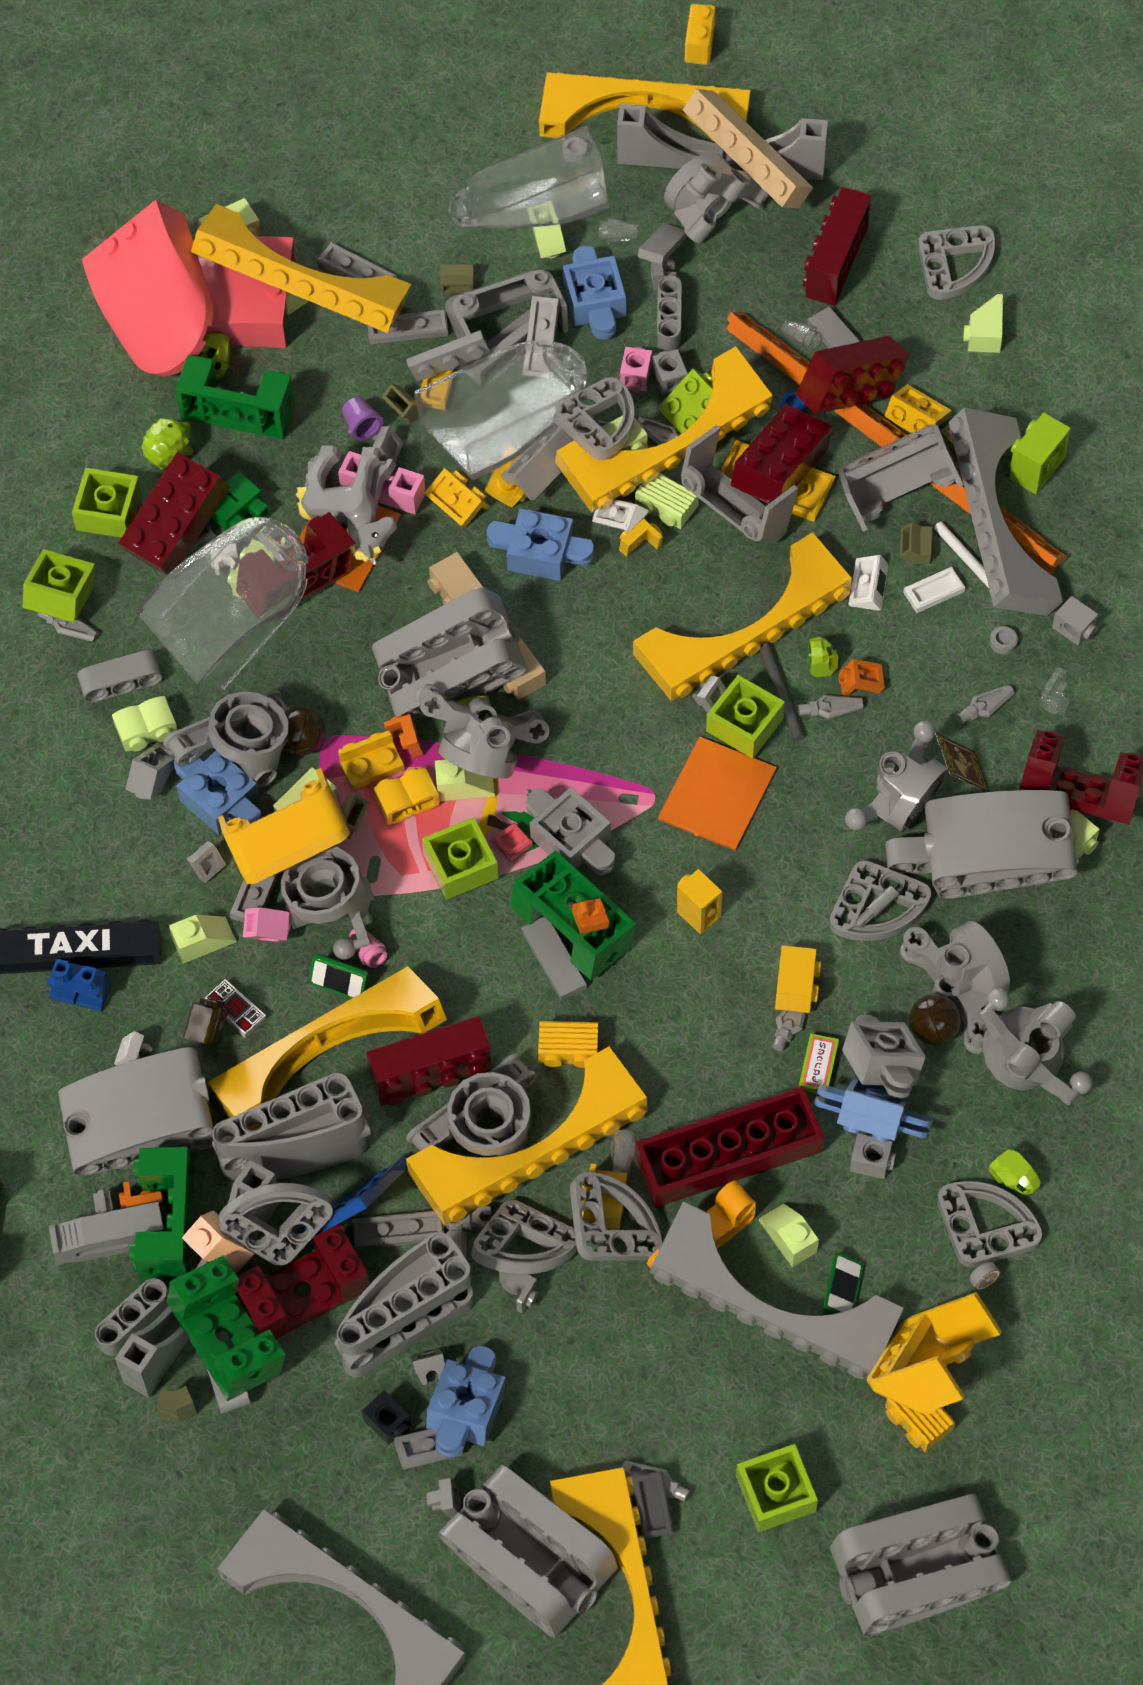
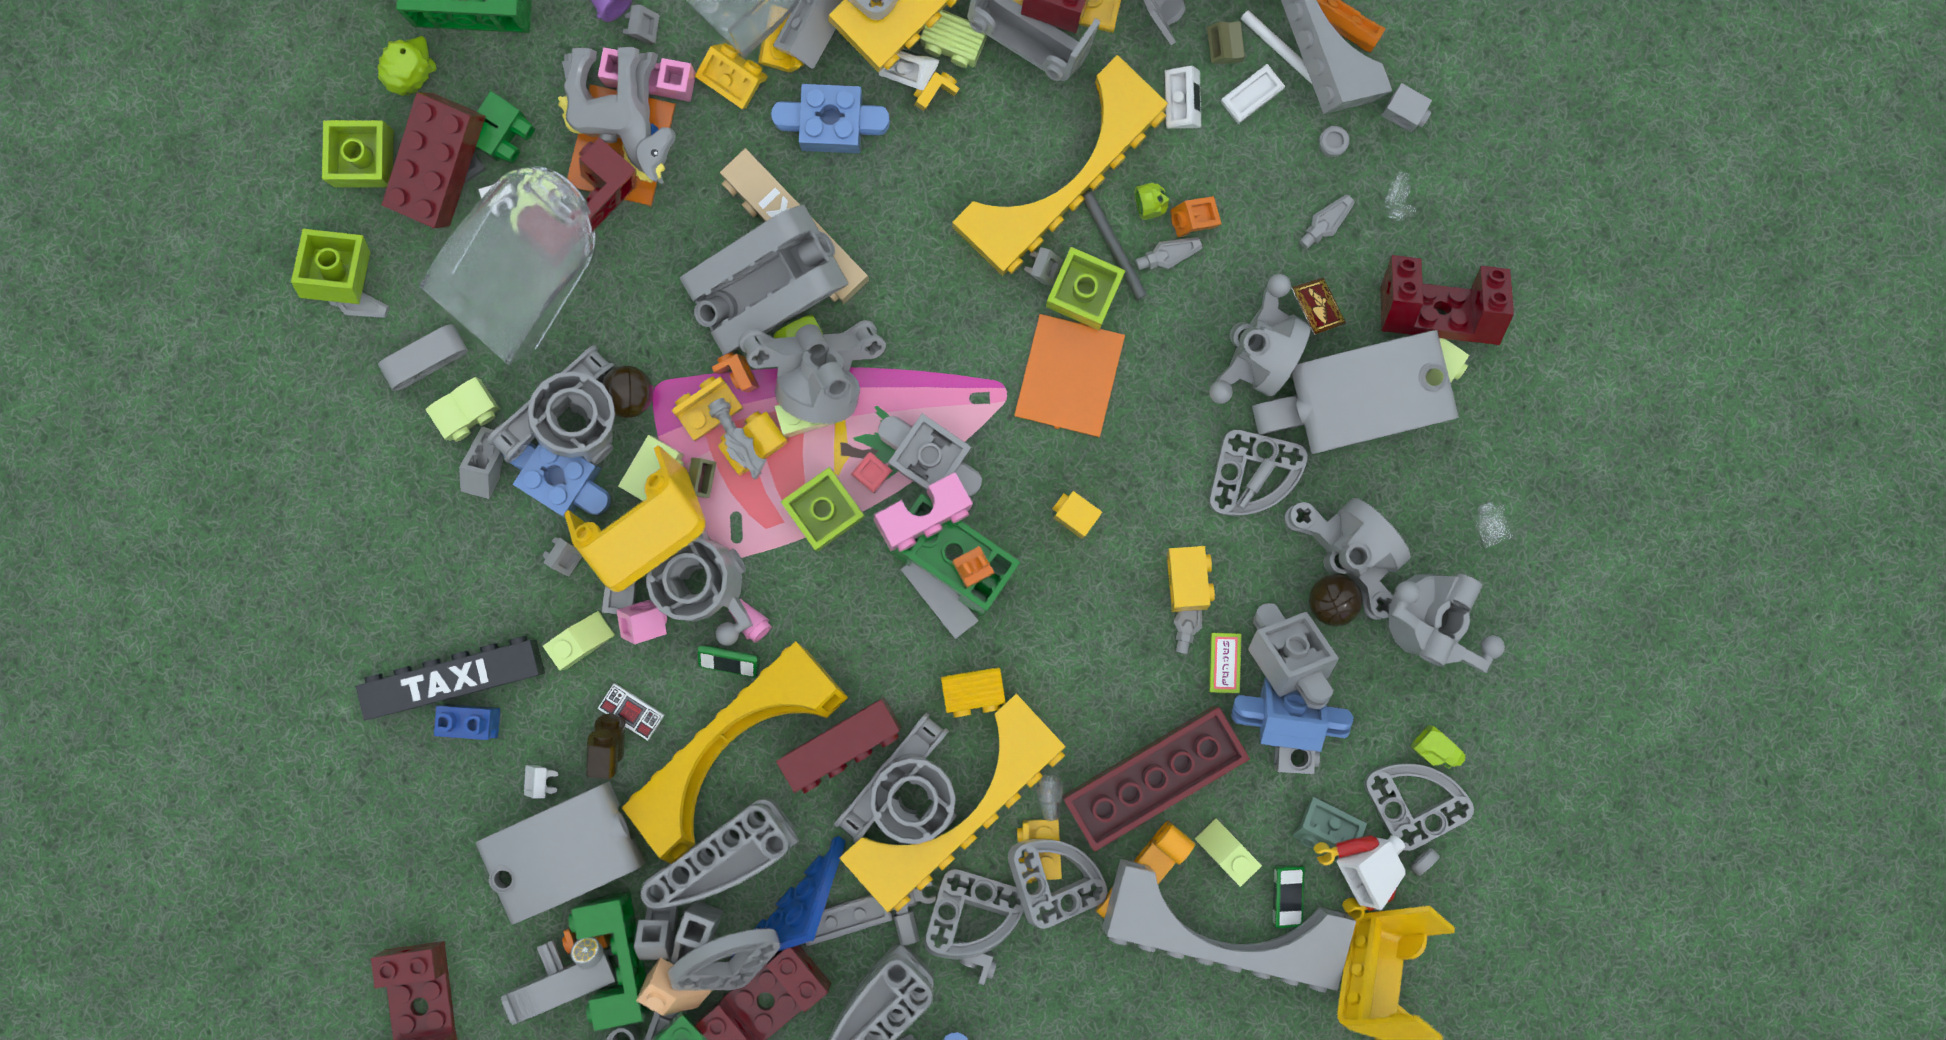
camera: 15 degrees left, 25 degrees up
(143, 1197) = (587, 952): none -> light grey tile
(209, 1195) = (657, 933): none -> light grey brick
(392, 785) = (739, 445): none -> light grey piece
(533, 868) = (901, 527): none -> bright pink arch
(893, 1232) = (1327, 825): none -> sand green bracket
(926, 1262) = (1369, 868): none -> white torso
(1100, 984) = (1491, 524): none -> clear bracket

